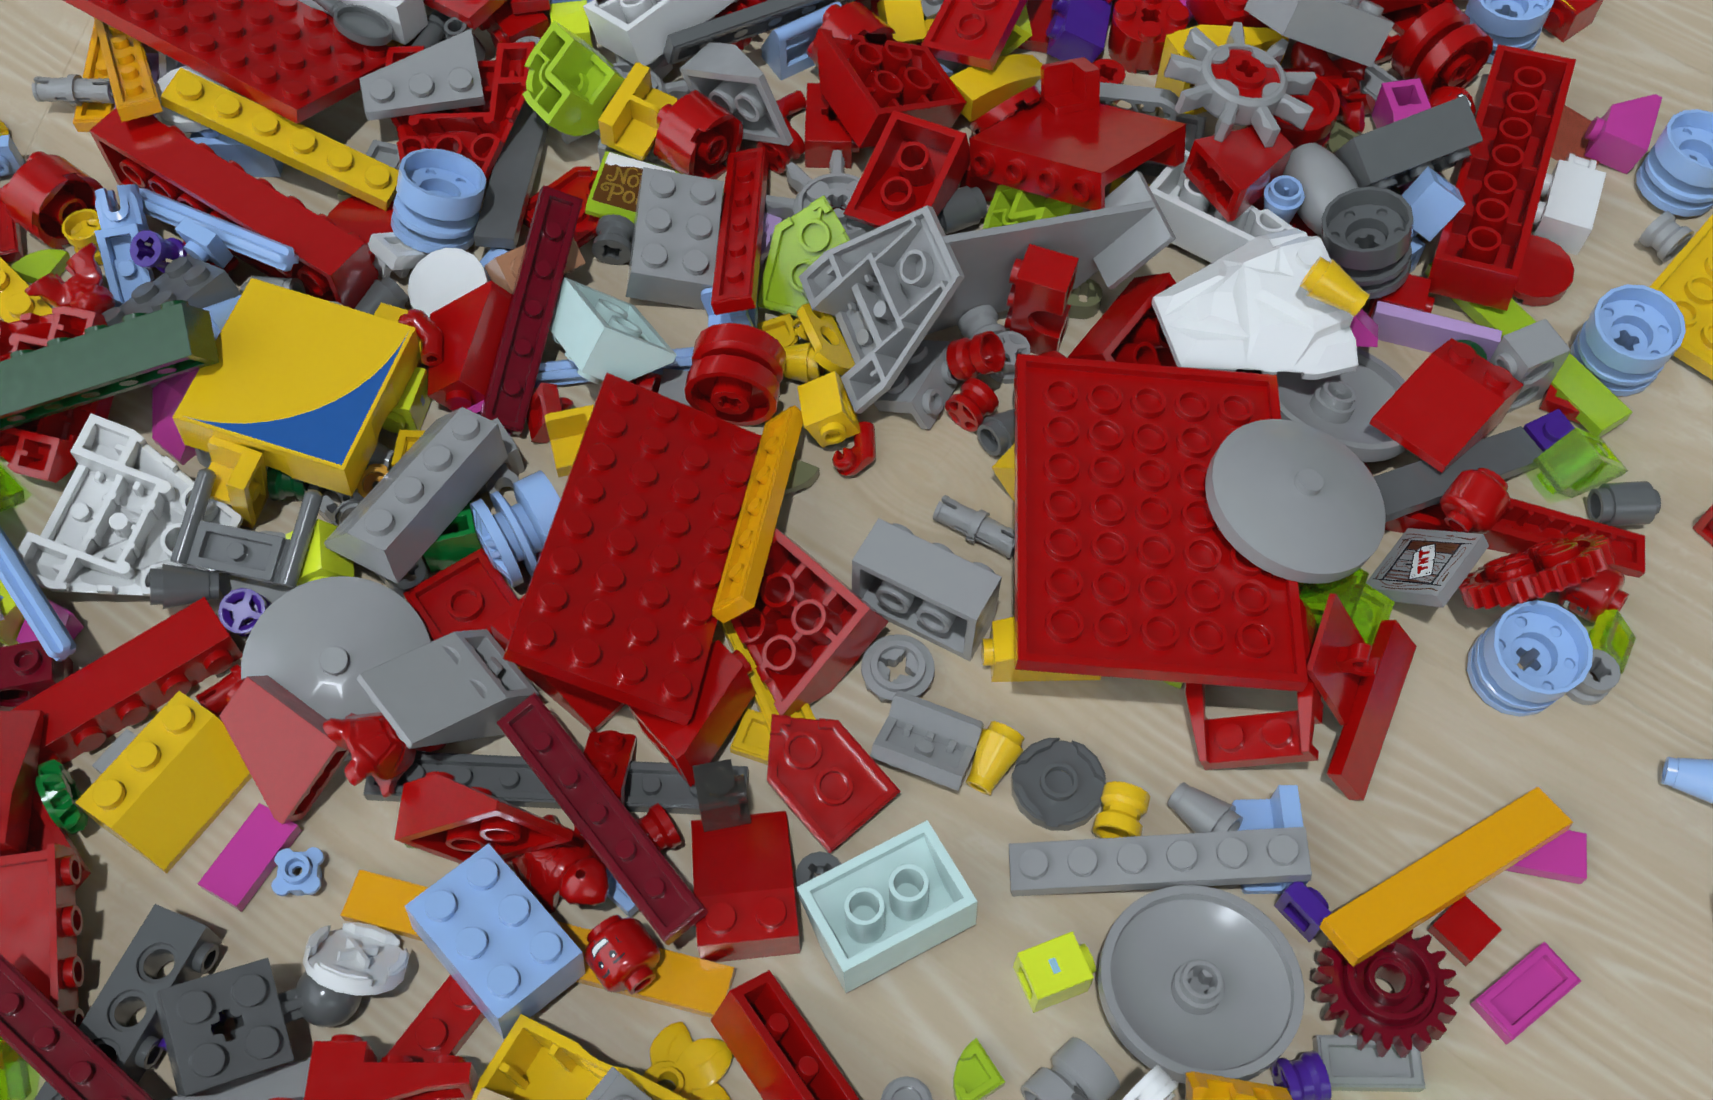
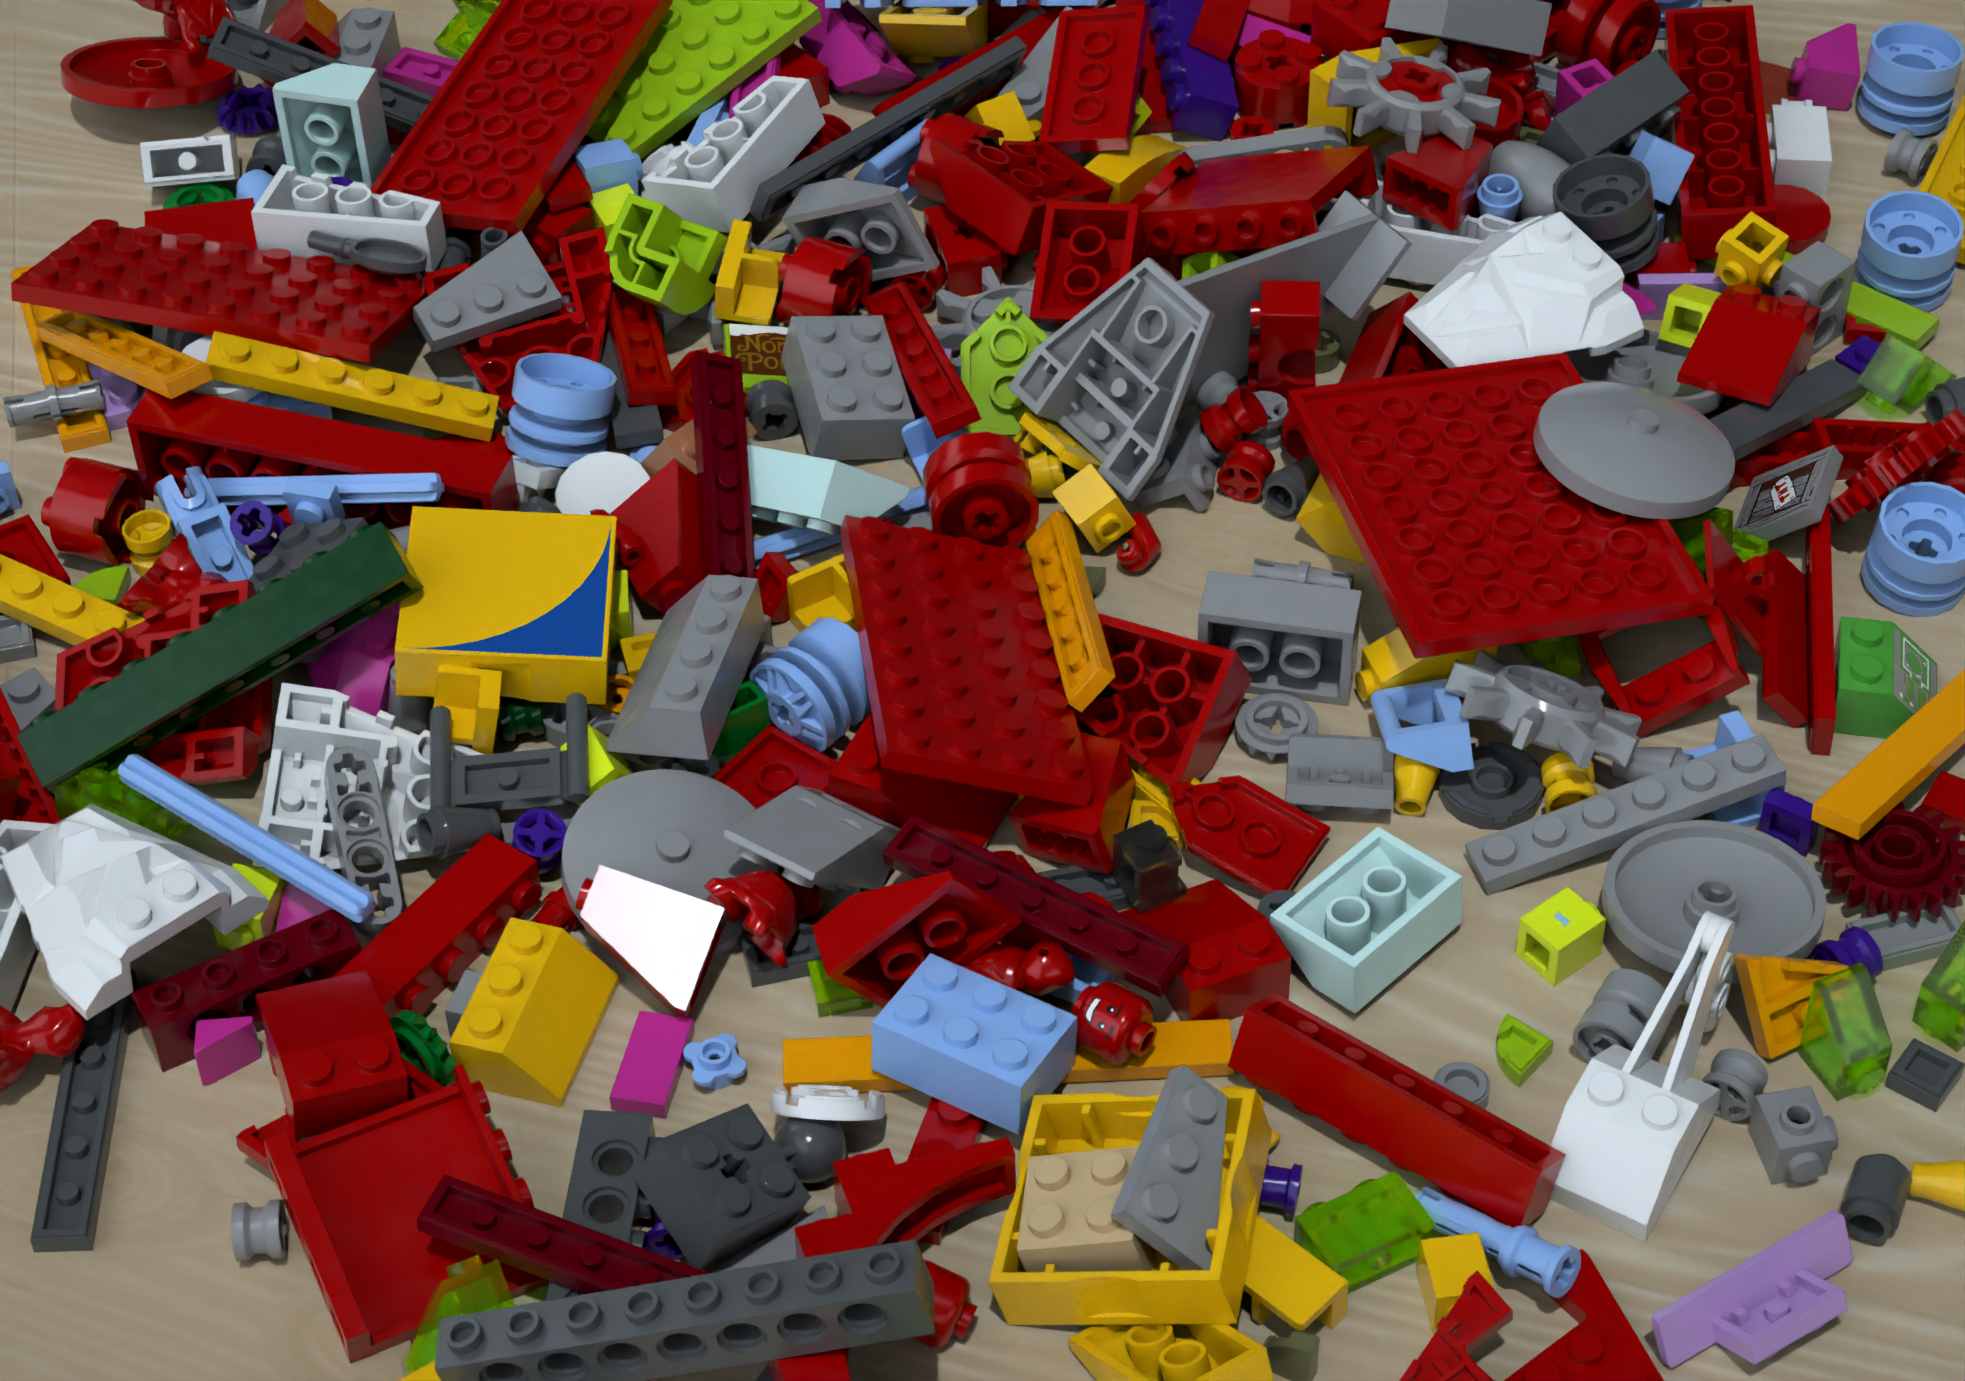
camera: 15 degrees left, 15 degrees down
(106, 578) = (368, 840): none -> light grey beam
(526, 164) = (640, 350): none -> red tile
(1017, 746) = (1441, 732): none -> light blue tile
(1070, 86) = (1226, 141): red panel -> none
(1123, 740) = (1544, 709): none -> light grey gear
(1334, 287) = (1594, 245): yellow cone -> none
(1404, 719) = (1820, 635): none -> red tile
(1407, 352) = (1686, 313): none -> neon yellow brick
(1442, 781) = (1879, 677): none -> bright green slope
(1475, 501) = (1813, 419): red head -> none
(1480, 315) = (1751, 253): none -> yellow brick

